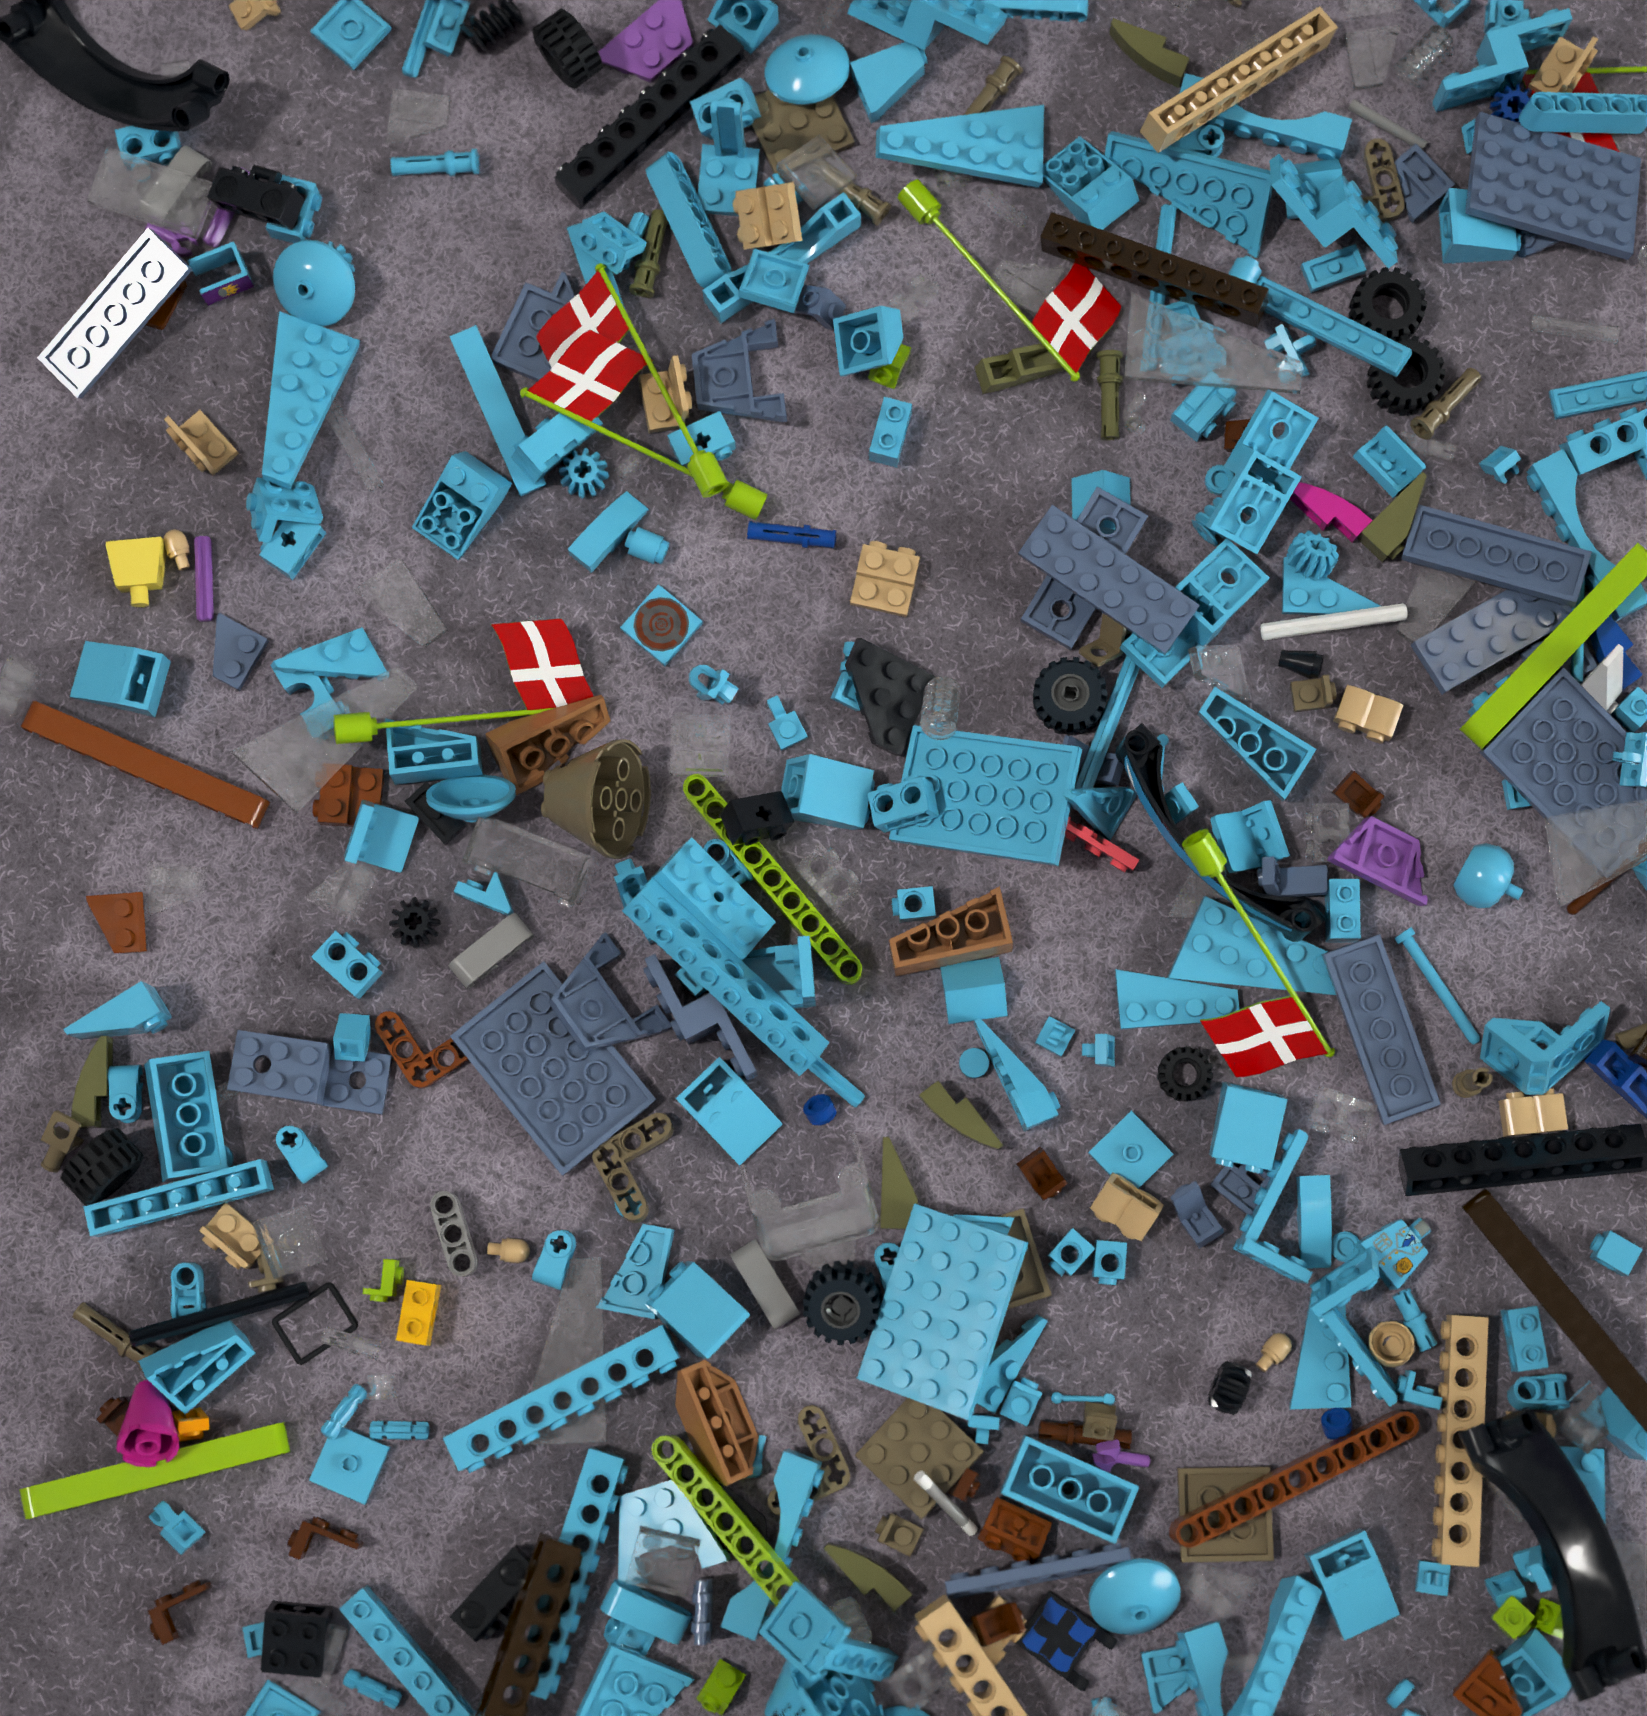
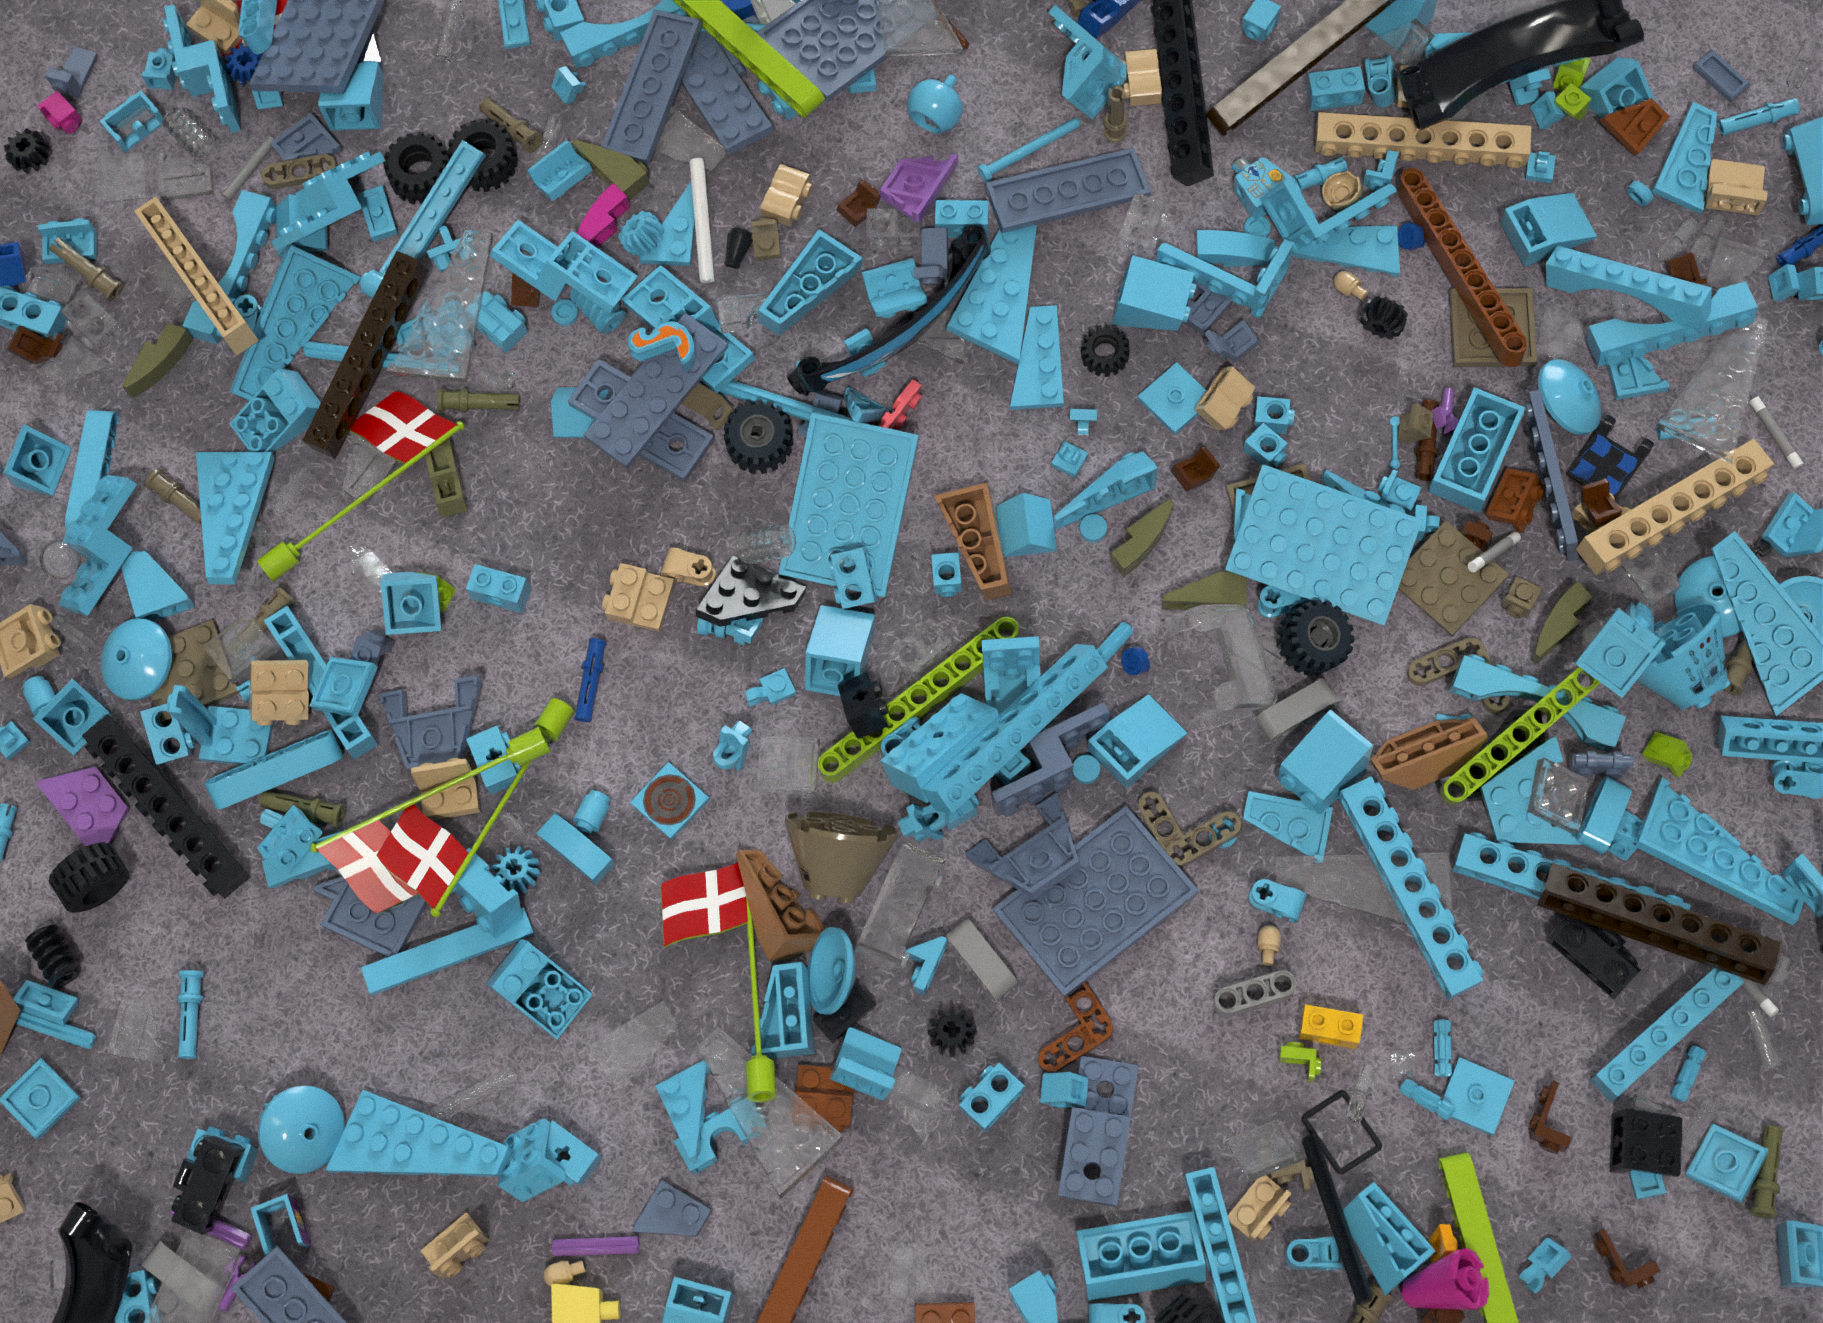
camera: 85 degrees left, 10 degrees down
(303, 1157) = (1180, 1139): medium azure piece -> none
(698, 1057) = (1086, 769): none -> medium azure tile
(919, 625) = (684, 567): none -> tan piece
(1159, 580) = (663, 338): none -> medium azure animal
(1269, 1030) = (1066, 276): flag -> none

